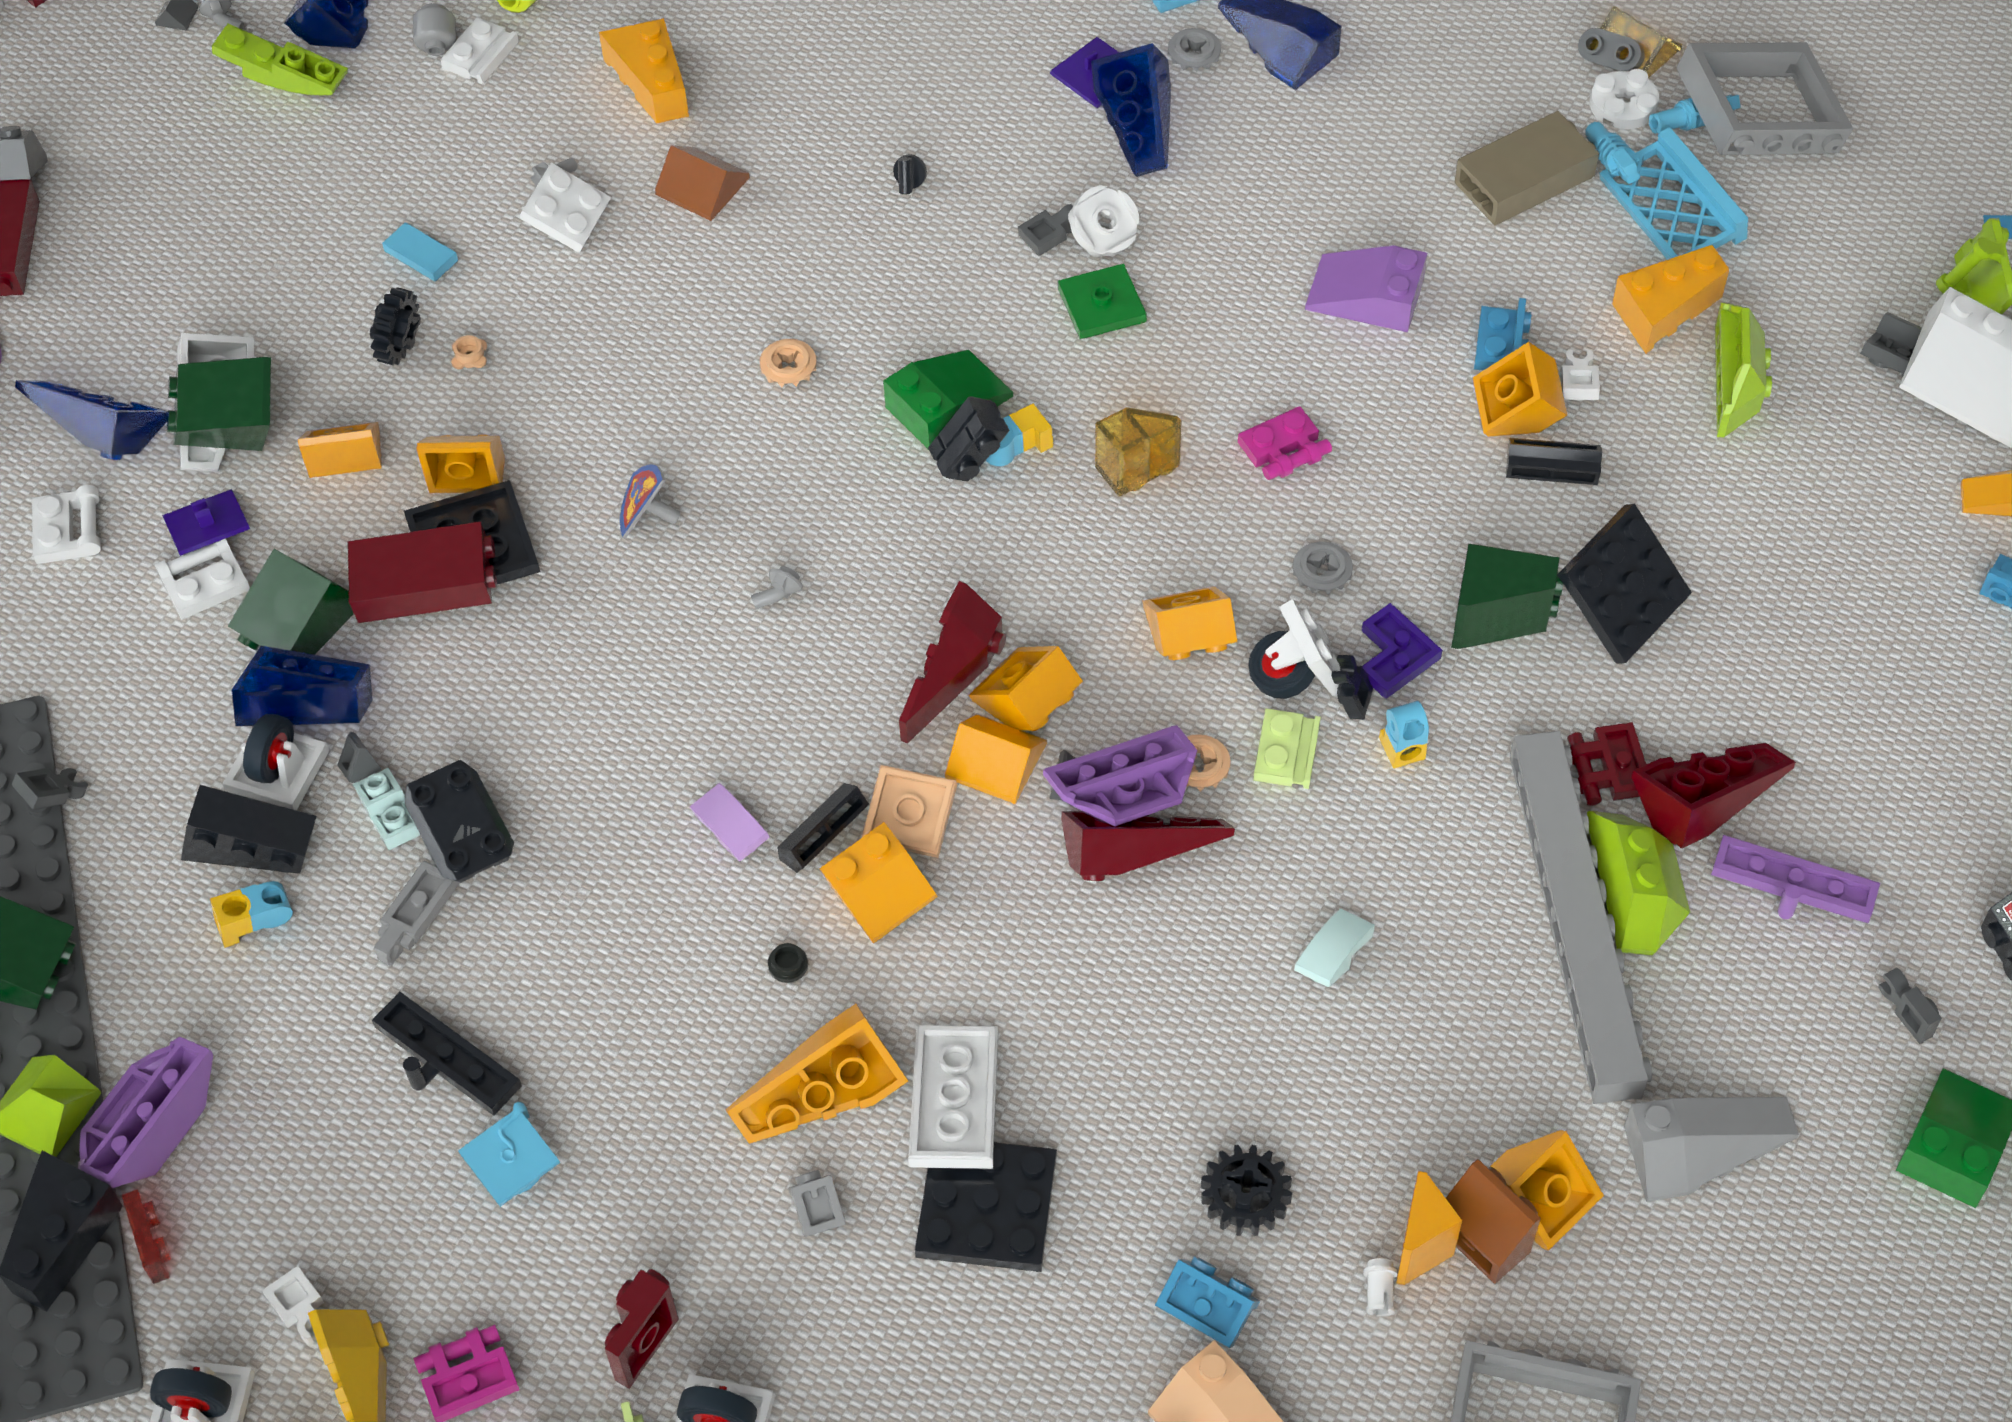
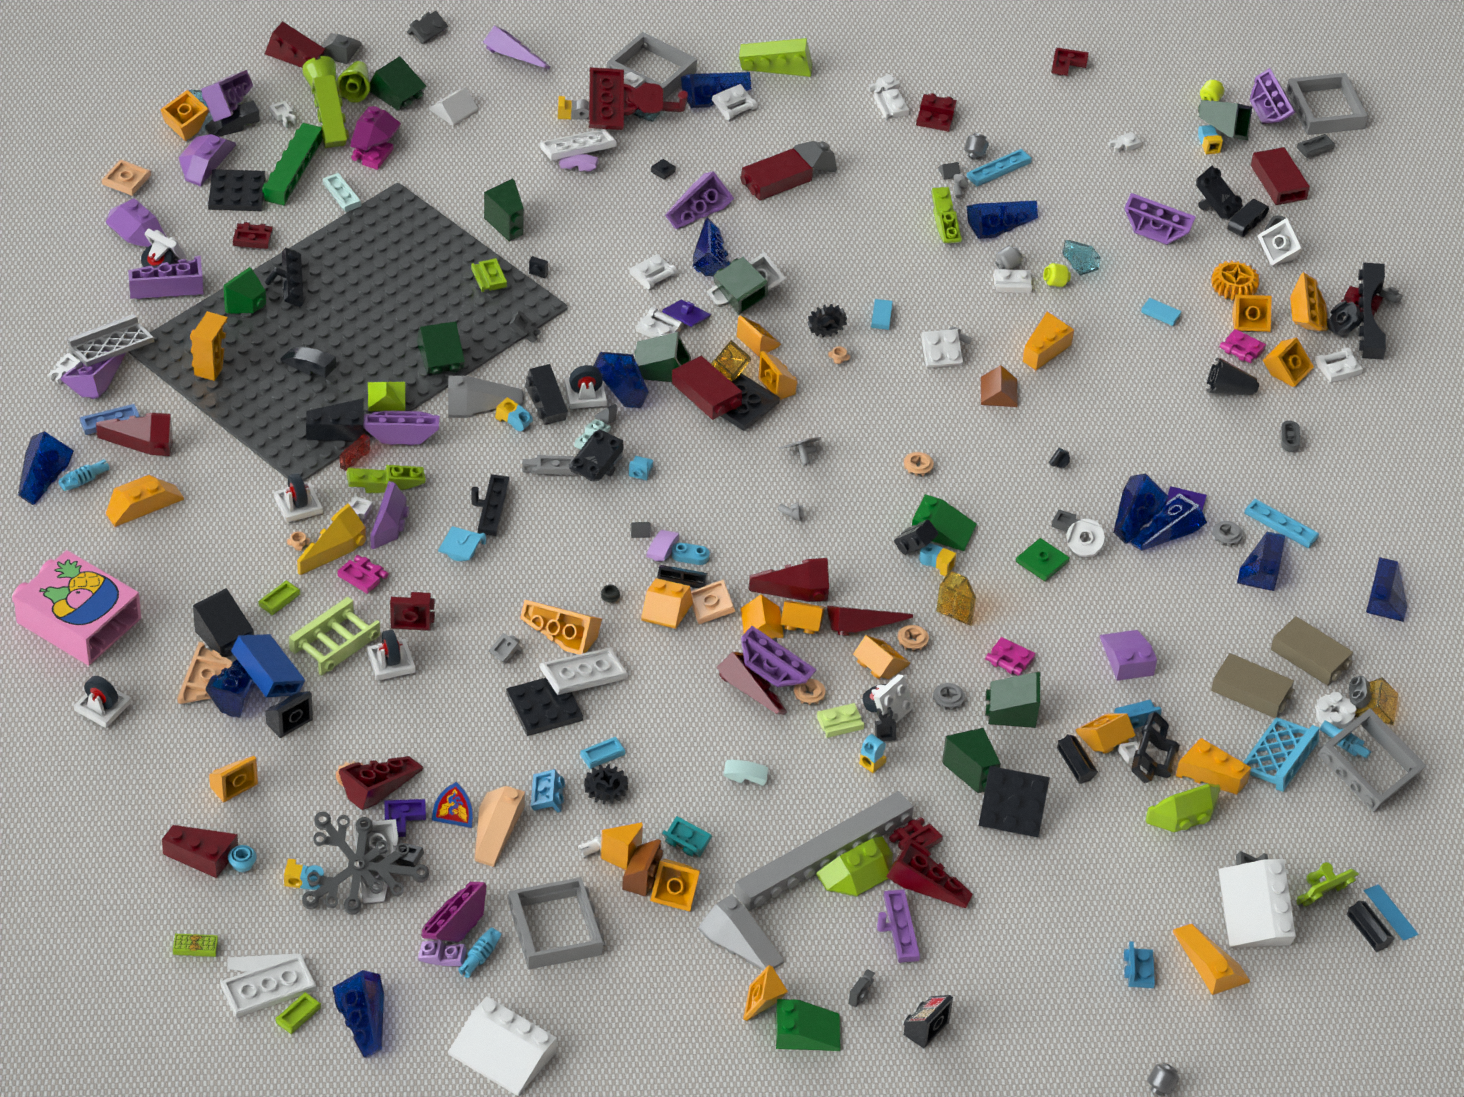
camera: 55 degrees right, 10 degrees down
(155, 954) = (474, 395): none -> light grey wedge
(255, 1212) = (376, 480): none -> lime slope
(354, 1249) = (390, 517): none -> medium lavender wedge
(373, 509) = (731, 360): none -> clear yellow slope
(517, 768) = (640, 467): none -> medium azure bracket
(662, 839) = (640, 529): none -> dark grey slope
(773, 788) = (690, 553): none -> medium azure plate
(1067, 117) = (1138, 504): none -> clear blue wedge
(1089, 604) = (856, 620): none -> dark red wedge
(1157, 1160) = (602, 752): none -> medium azure tile
(1181, 552) = (915, 632): none -> light nougat gear
(1399, 477) = (1014, 701): none -> slope
(1404, 651) = (922, 742): dark purple plate -> none
(1440, 1115) = (687, 836): none -> teal bracket
(1497, 65) = (1312, 651): none -> dark tan brick
(1613, 152) = (1287, 713): medium azure hinge -> none
(1618, 373) = (1159, 740): none -> black bar
(1874, 1167) = (764, 992): none -> light orange slope

